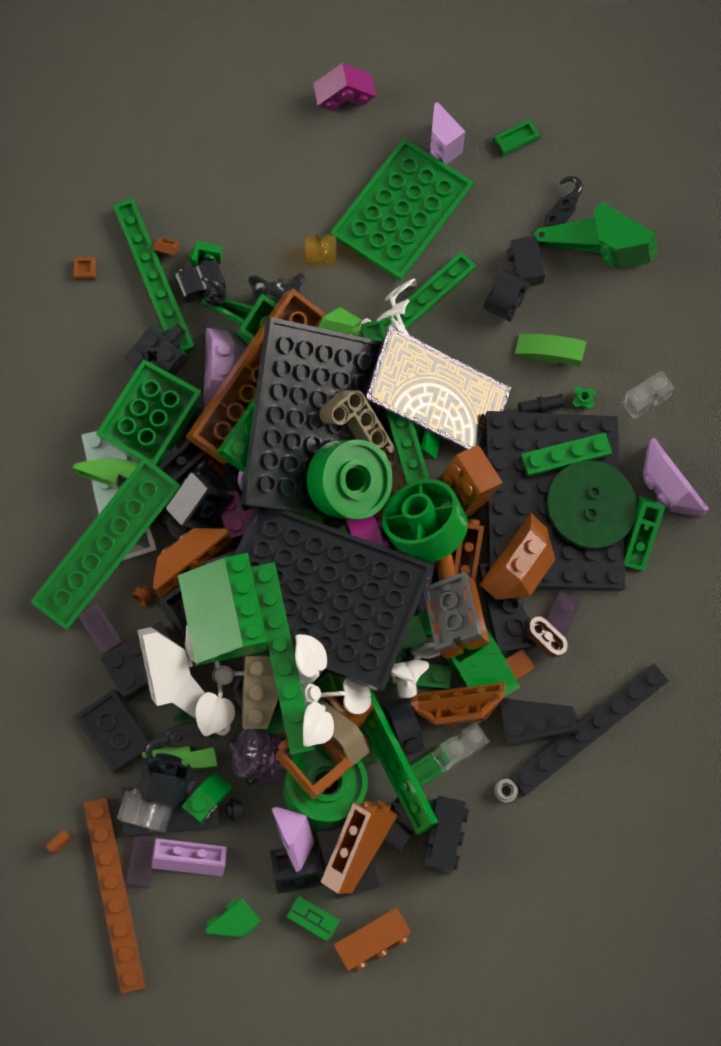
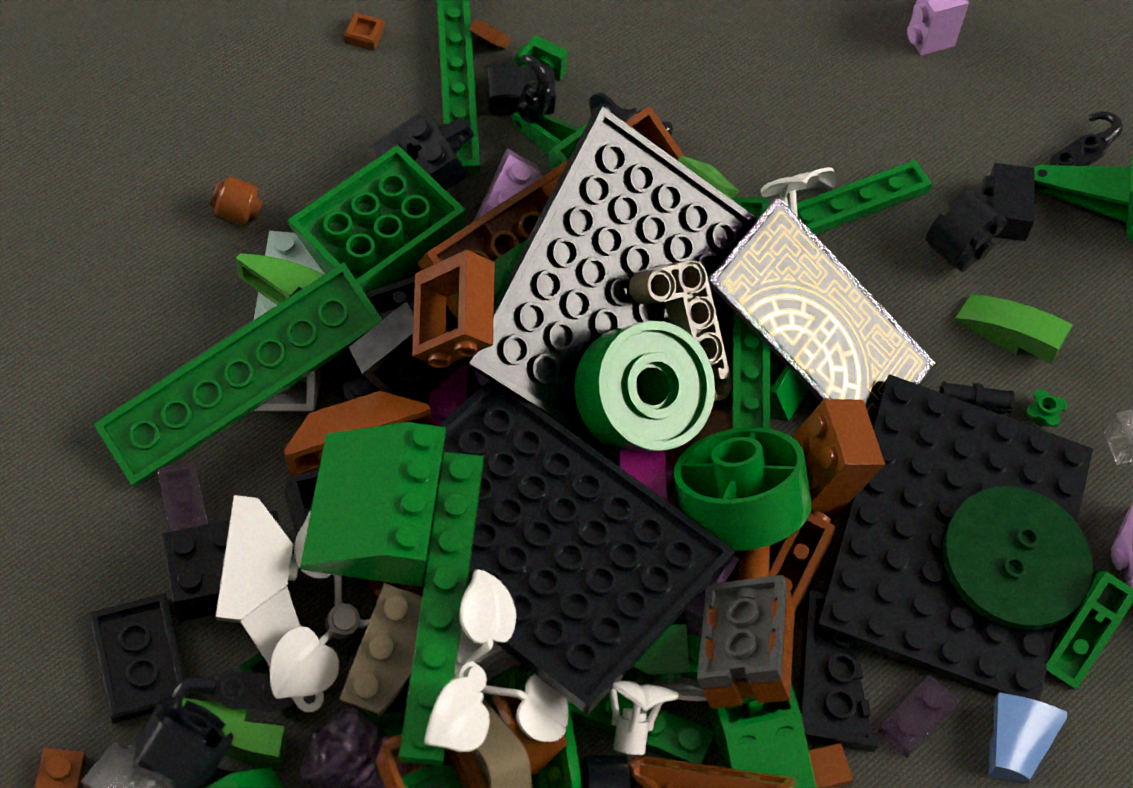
camera: 15 degrees right, 15 degrees down
(53, 422) = (236, 201): none -> dark orange head
(142, 595) = (267, 473): dark orange plate -> none
(238, 472) = (474, 281): none -> dark orange window
(320, 248) = (709, 98): clear yellow wheel -> none
(402, 209) = (844, 86): green plate -> none
(516, 138) = (1039, 48): green tile -> none
(521, 562) = (877, 604): dark orange wedge -> none
(546, 636) = (886, 734): plate -> none
(565, 454) = (993, 469): green plate -> none
(620, 610) = (1021, 736): none -> medium blue slope

